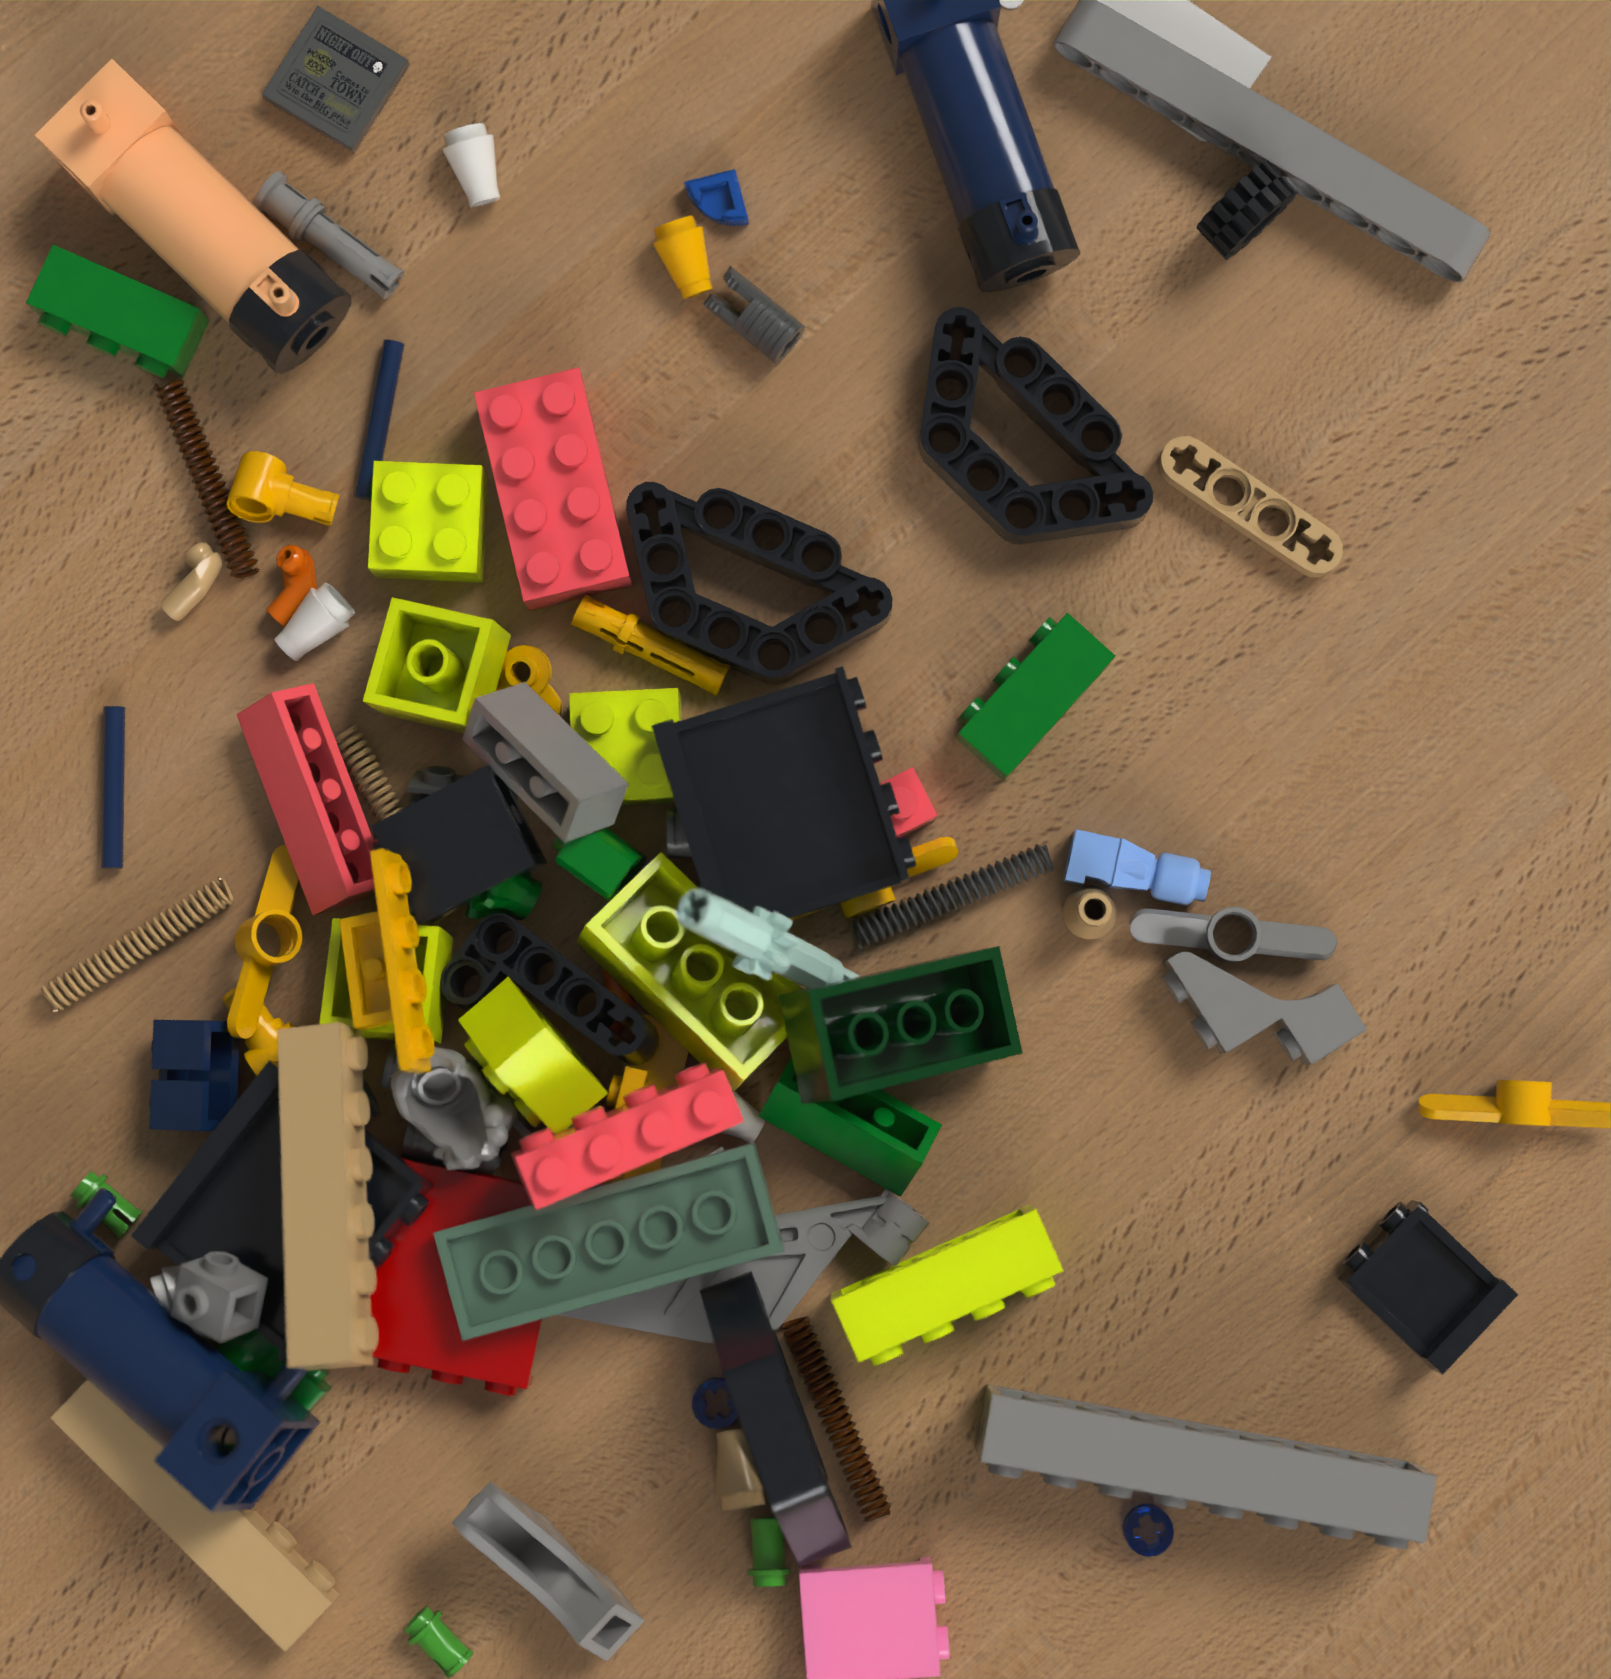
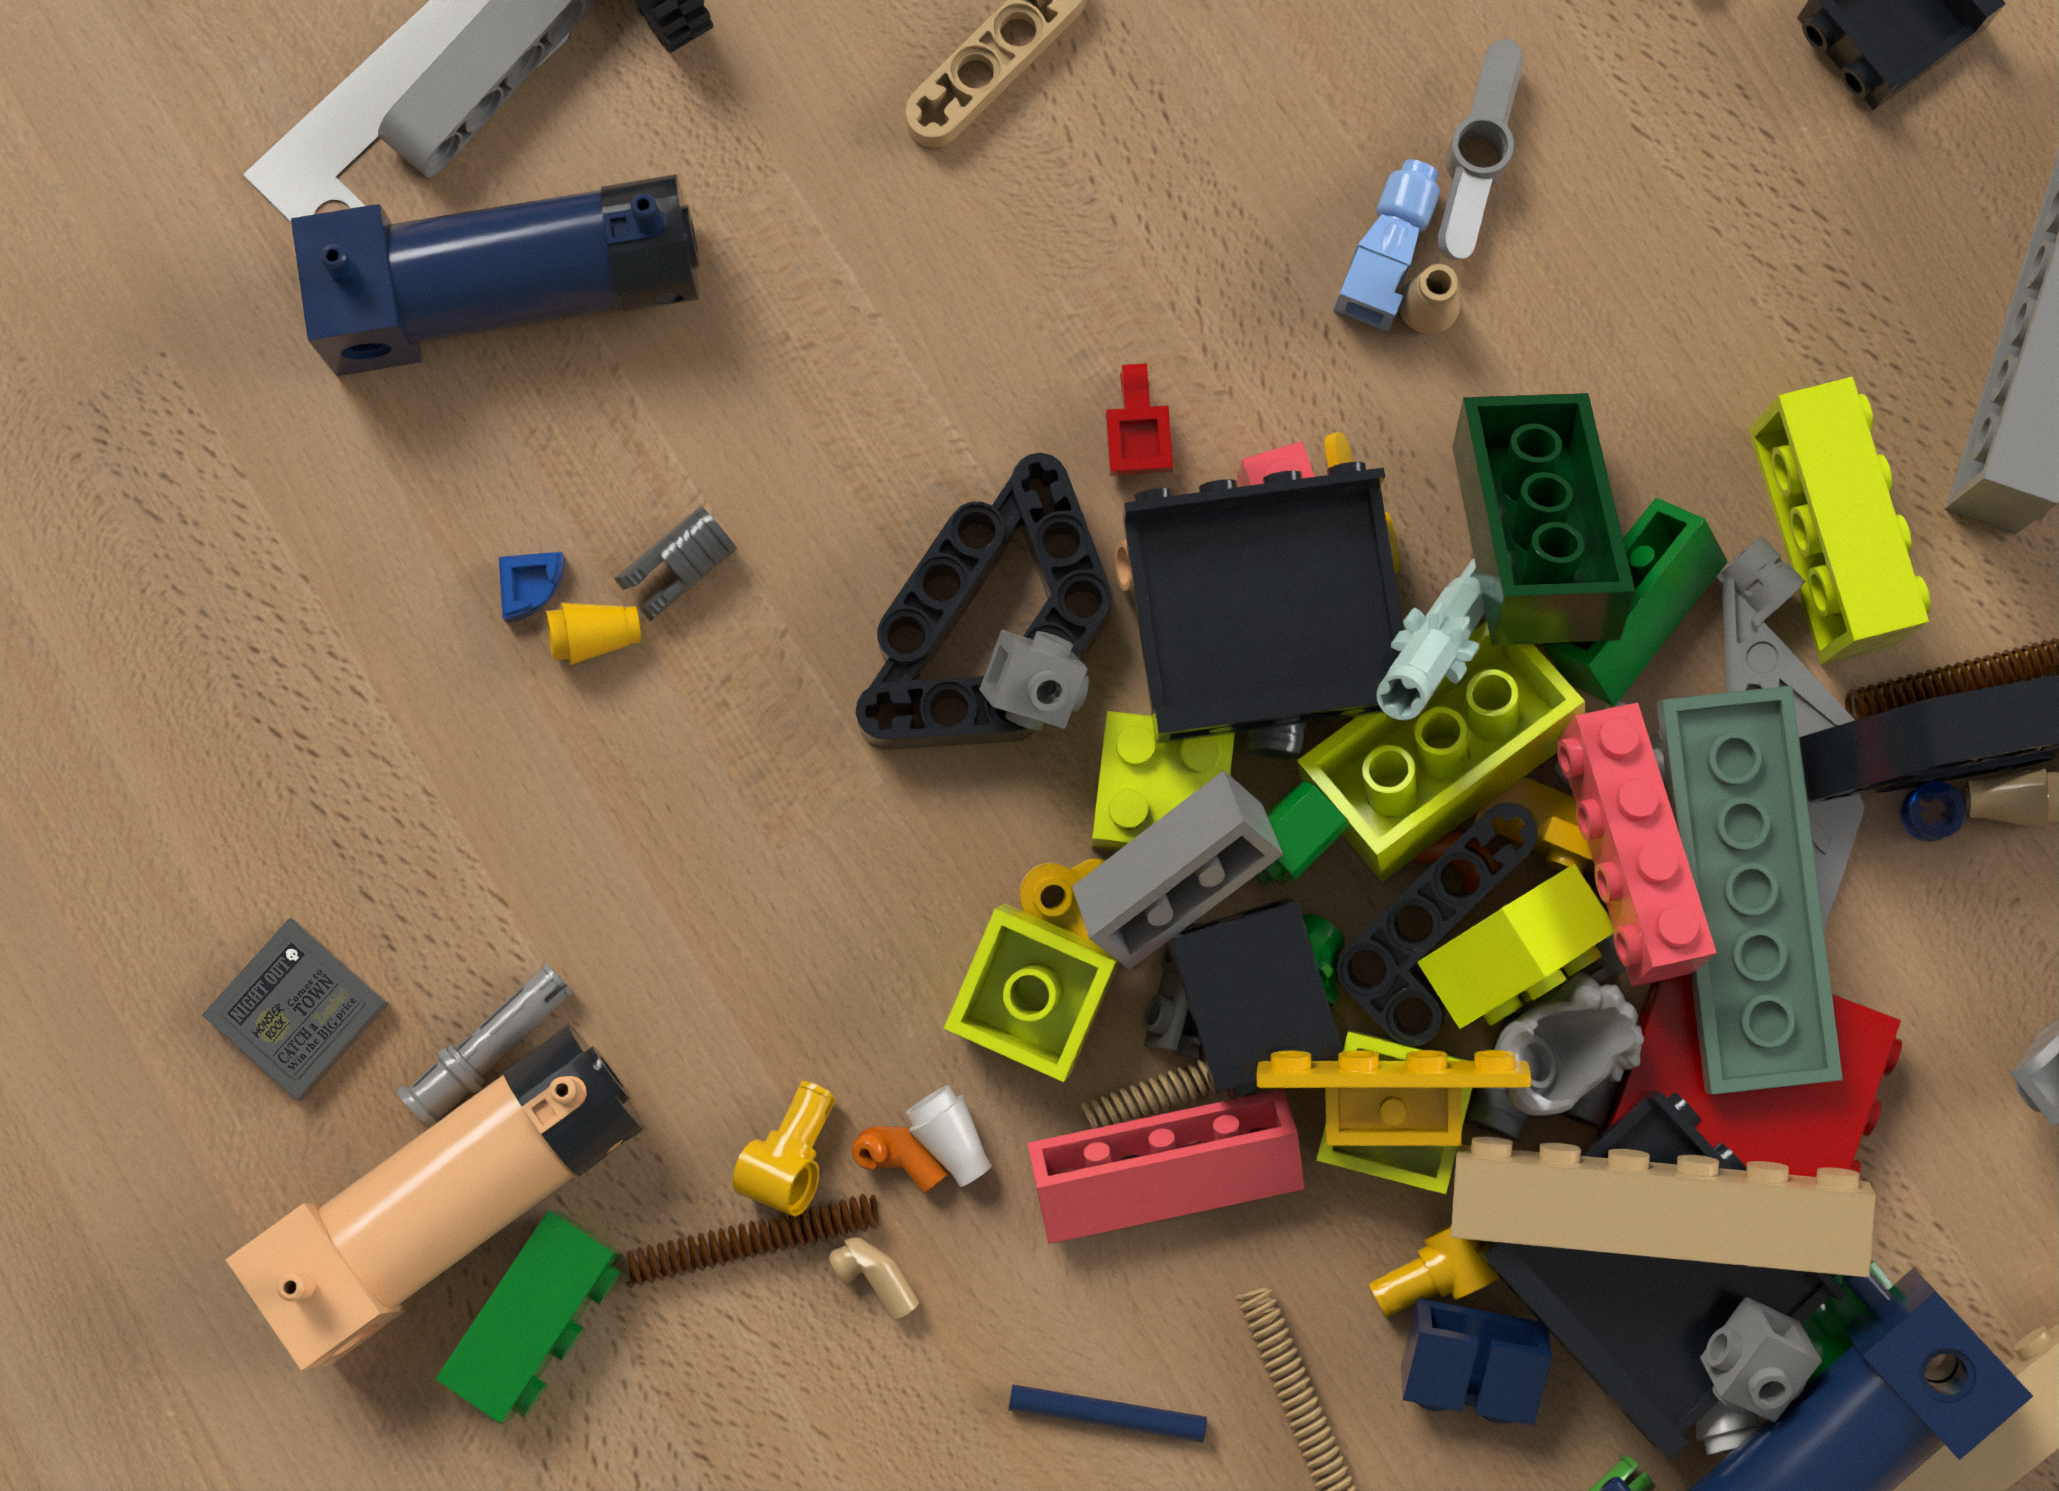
camera: 85 degrees left, 5 degrees down
(274, 909) = (1325, 1221): yellow piece -> none
(379, 415) = (718, 1022): dark blue bar -> none
(428, 521) = (854, 977): neon yellow brick -> none
(473, 162) = (430, 858): white cone -> none
(553, 489) = (840, 824): coral brick -> none
(649, 644) = (1035, 755): yellow pin -> none
(687, 621) = (1035, 680): none -> light grey brick
(929, 681) = (1138, 433): none -> red plate
(949, 892) = (1371, 357): dark grey piece -> none
(1033, 694) = (1175, 320): green brick -> none
(1109, 470) = (772, 306): black piece -> none
(1235, 1011) = (1571, 163): light grey arch -> none

